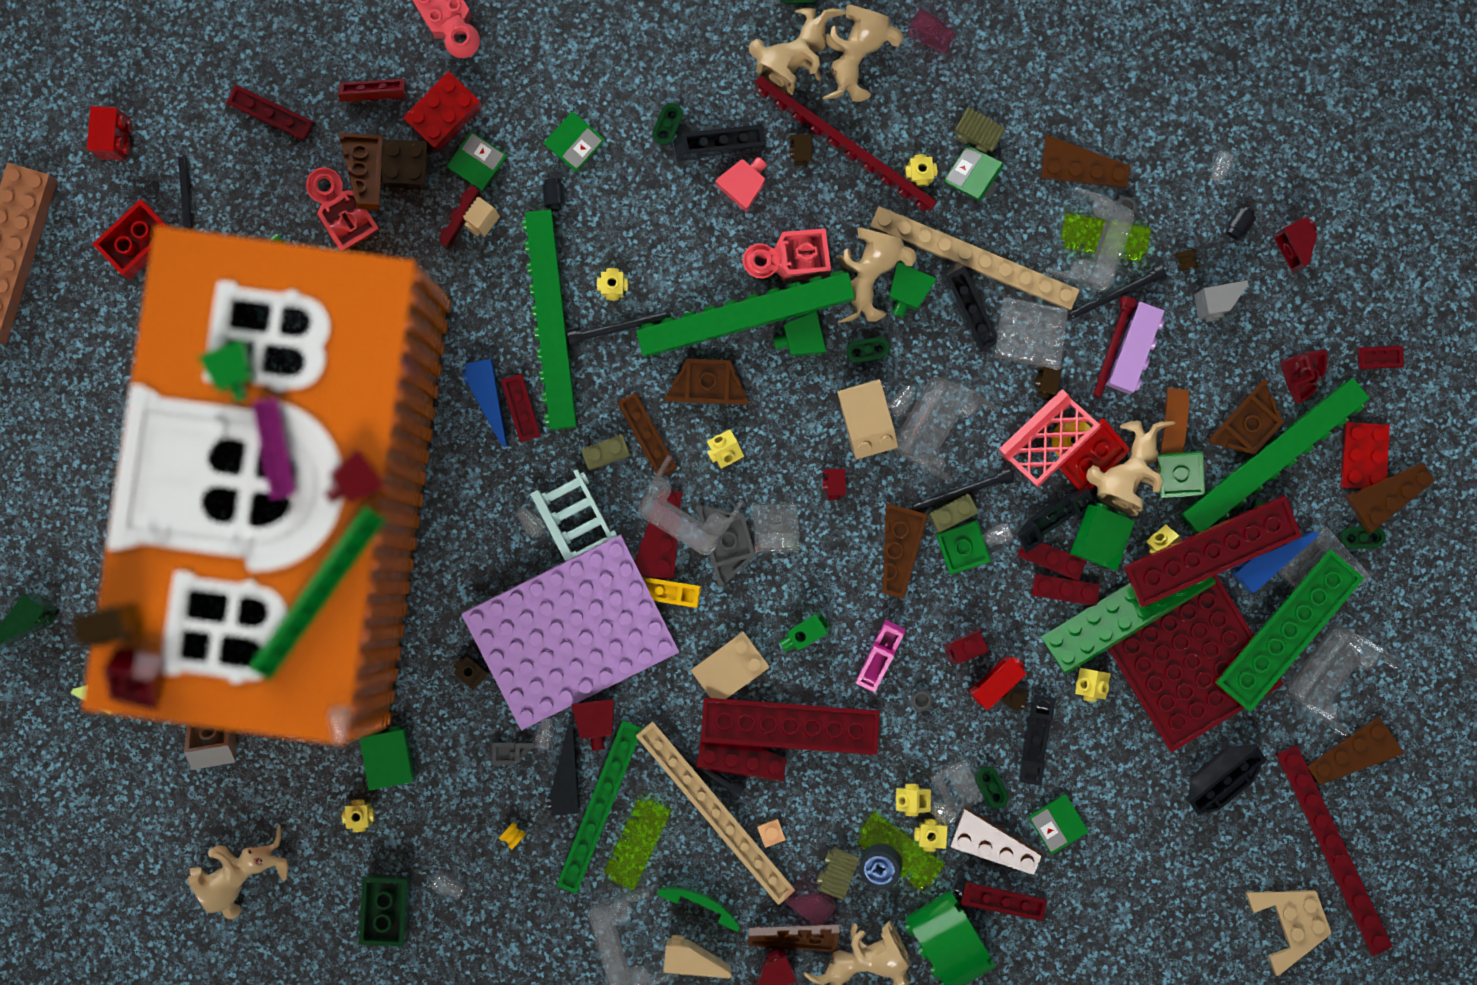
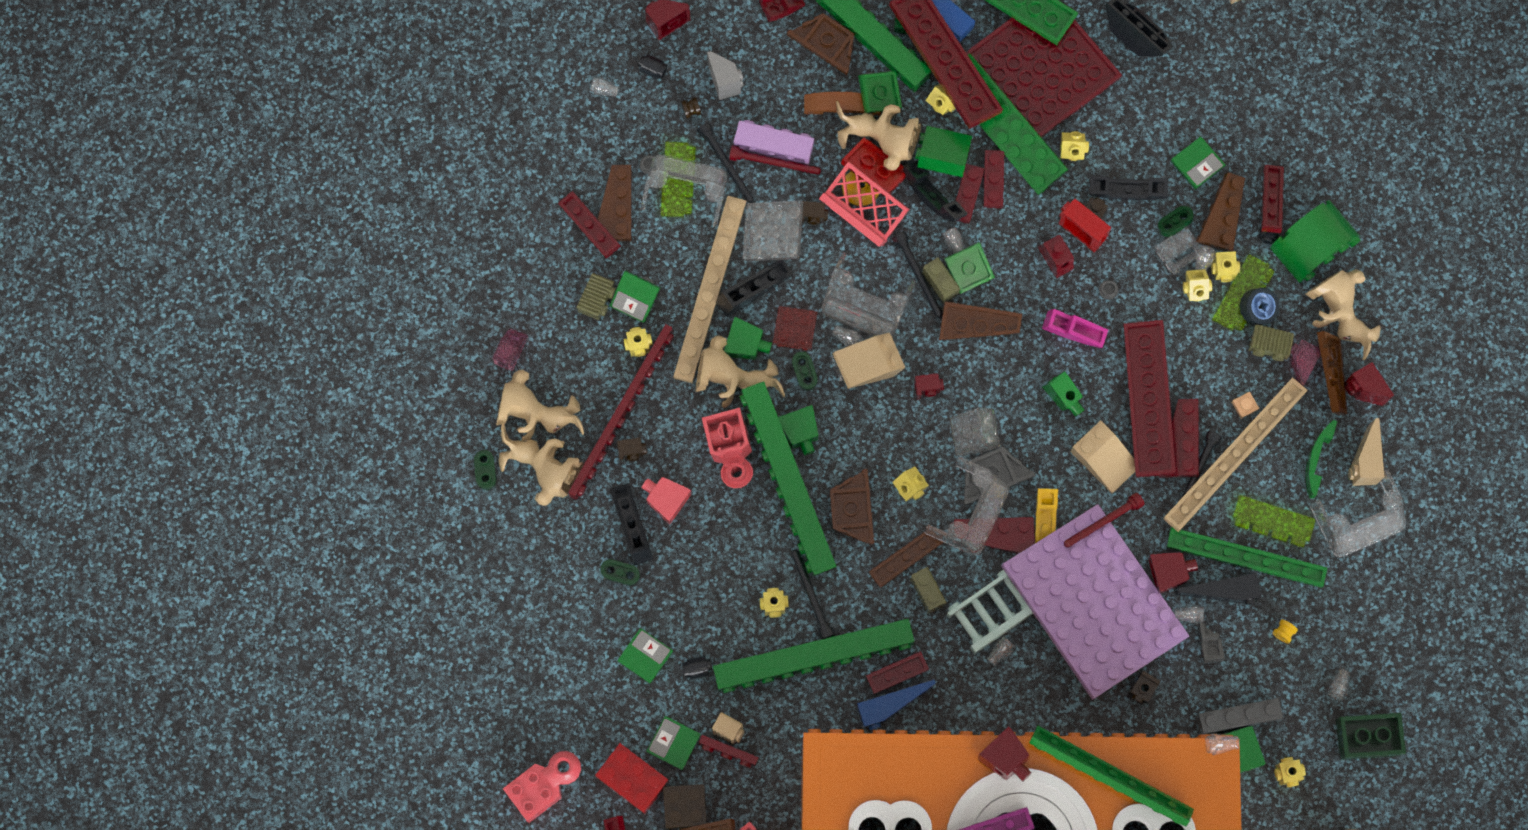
camera: 90 degrees left, 10 degrees down
(425, 770) = (1239, 716): none -> dark grey brick
(676, 692) = (1134, 502): none -> dark red piece
(918, 346) = (795, 328): none -> clear red plate
(1062, 132) = (589, 224): none -> dark red tile

